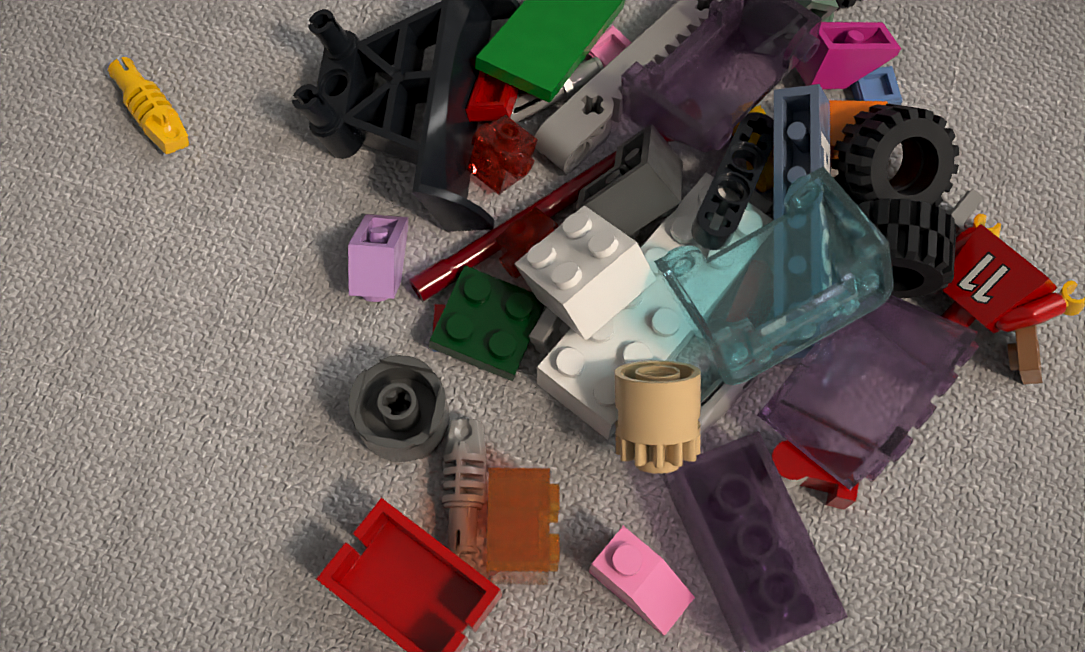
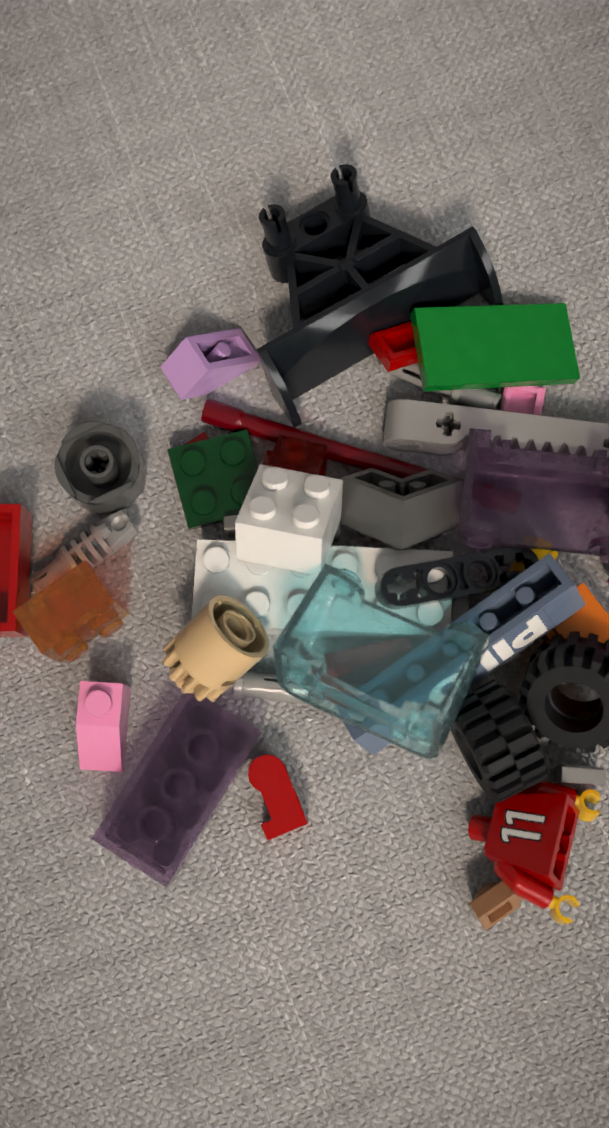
camera: 60 degrees right, 10 degrees up
(149, 107) = (203, 111): yellow hinge -> none
(501, 154) = (357, 388): clear red brick -> none
(868, 388) = (363, 792): clear purple windscreen -> none

